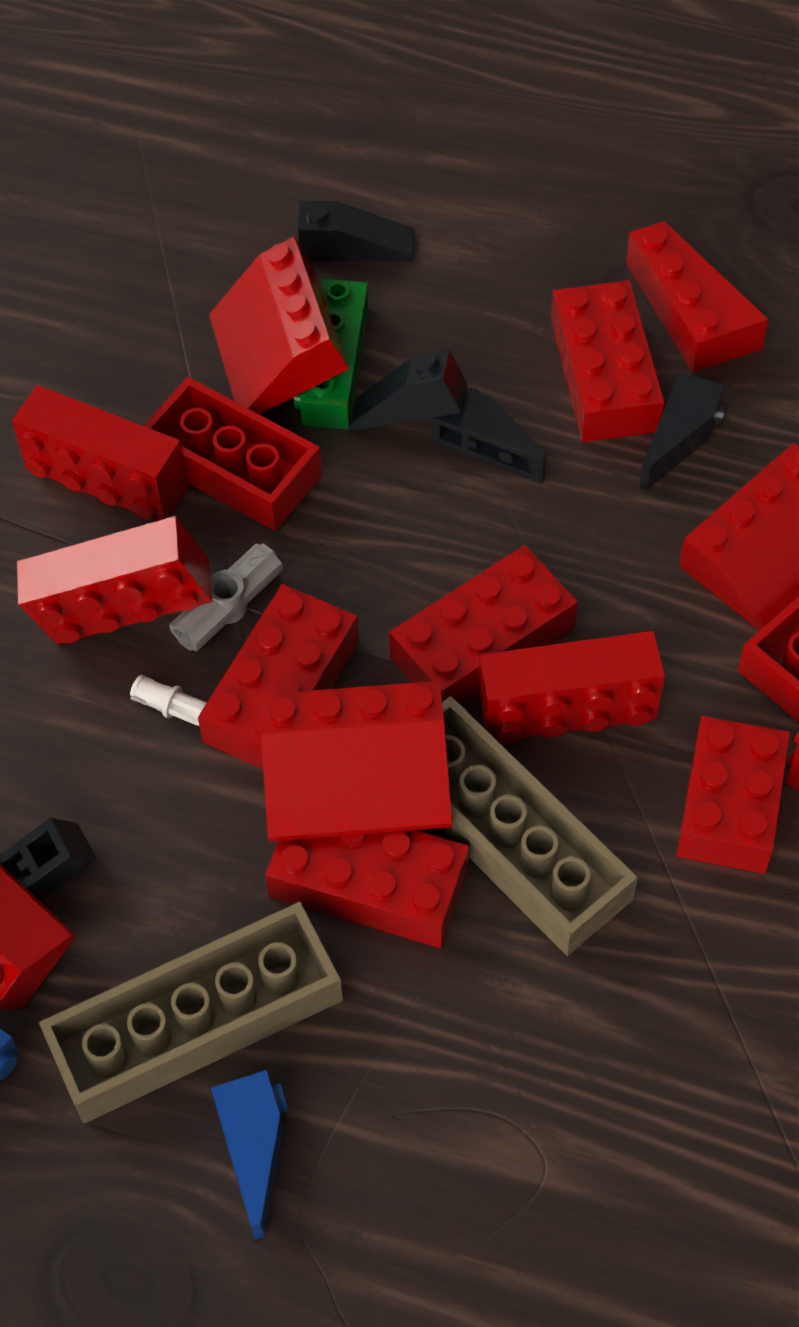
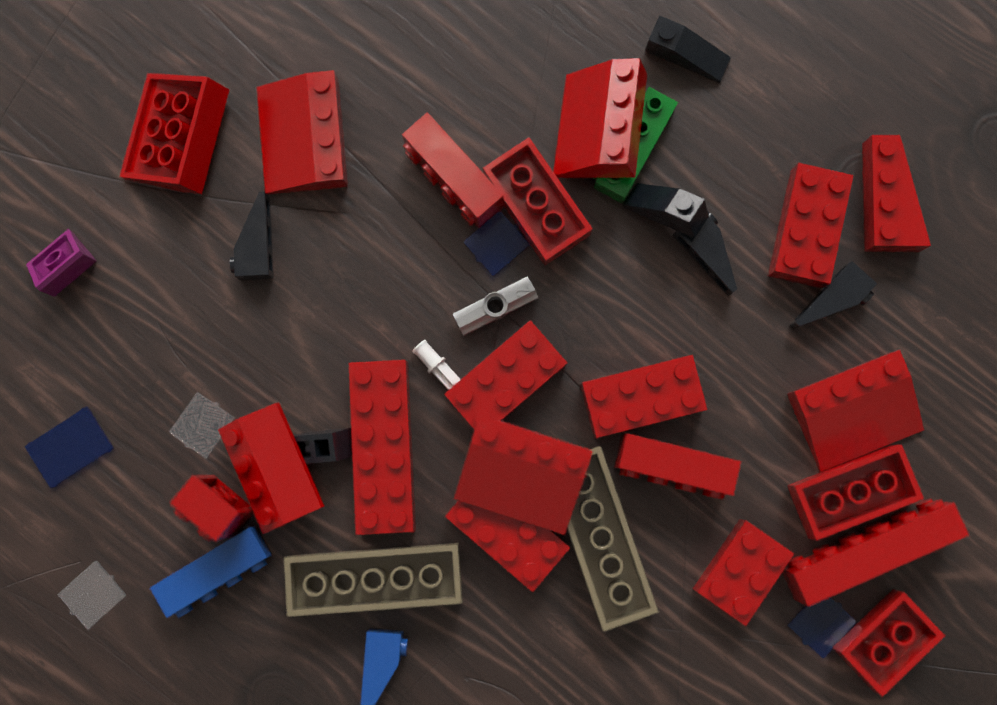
camera: 25 degrees right, 25 degrees up
(114, 581) = (426, 281): red brick -> none
(136, 833) = (382, 447): none -> red brick
(207, 523) = (496, 243): none -> clear blue piece

